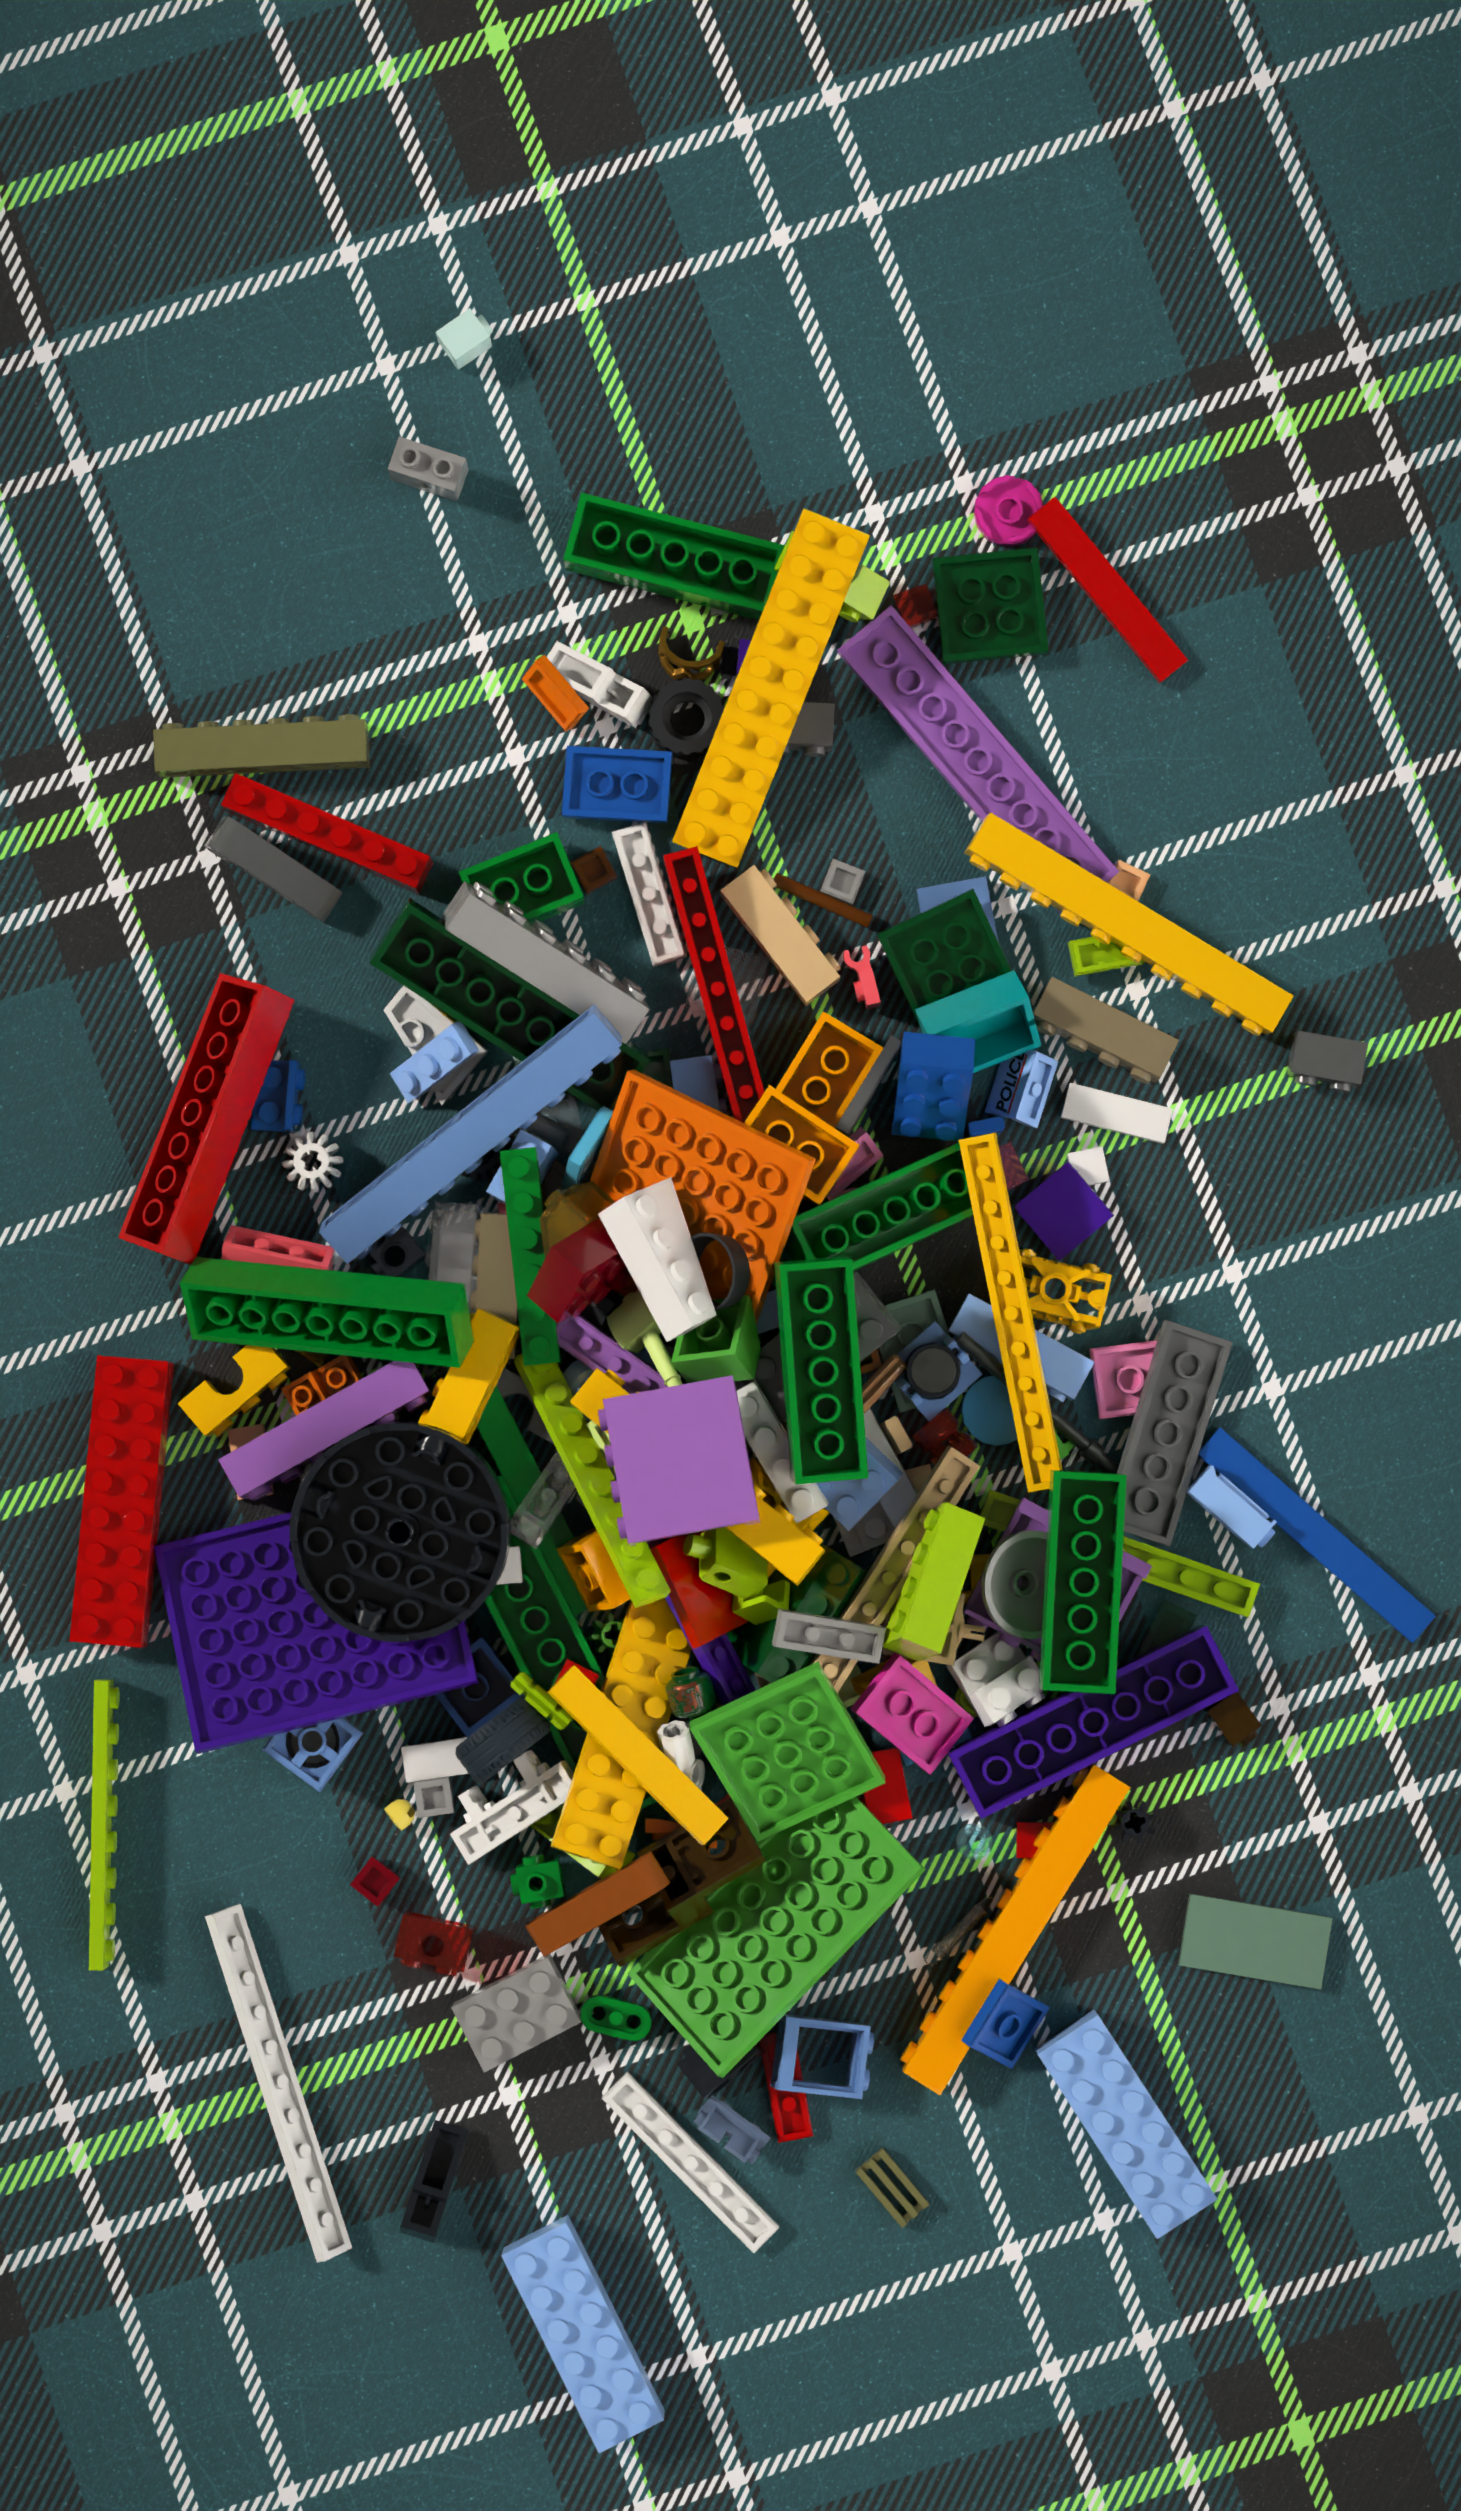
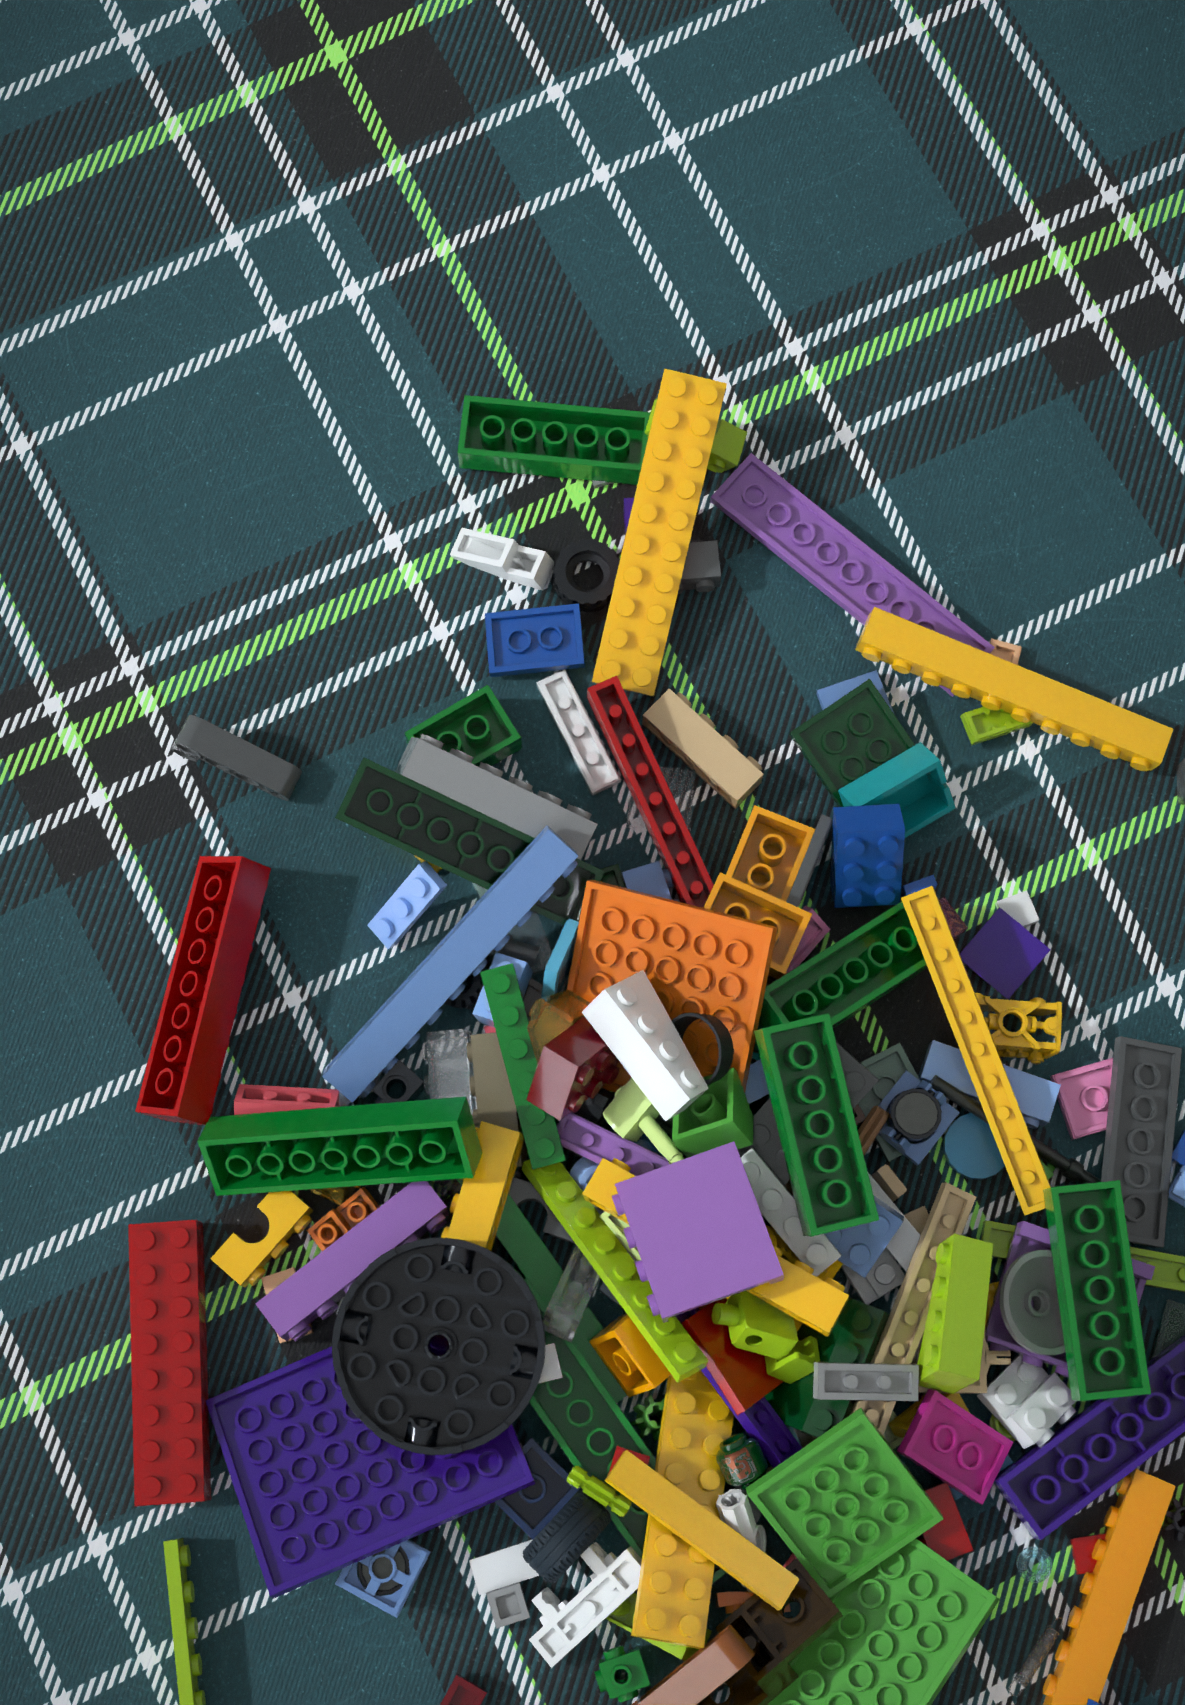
camera: 10 degrees left, 10 degrees down
(261, 747) = (211, 655): olive brick -> none
(278, 1098) = (267, 963): blue bracket -> none
(324, 1157) = (314, 1026): white gear -> none
(327, 832) = (242, 709): red arch -> none
(400, 1813) = (478, 1626): light yellow hinge -> none
(417, 1025) = (386, 873): white wing -> none
(428, 469) = (327, 400): light grey brick -> none
(465, 338) = (343, 290): light aqua brick -> none
(555, 693) = (467, 570): orange tile -> none
(593, 870) = (526, 718): reddish brown tile -> none
(684, 672) = (557, 520): pearl gold helmet -> none
(823, 900) = (735, 713): reddish brown bar -> none
(842, 881) = (749, 695): light grey tile -> none
(865, 987) = (787, 781): coral plate -> none
(915, 606) = (772, 452): clear red tile -> none
(937, 1430) = (930, 1169): clear red wheel -> none
(990, 606) = (837, 442): dark green plate -> none
(1004, 509) = (837, 363): dark pink tile -> none
(1022, 1087) = (944, 849): light blue panel -> none
(1103, 1030) = (1010, 787): dark tan brick -> none
(1107, 589) = (936, 414): red tile -> none
(1116, 1113) = (1033, 859): white tile -> none

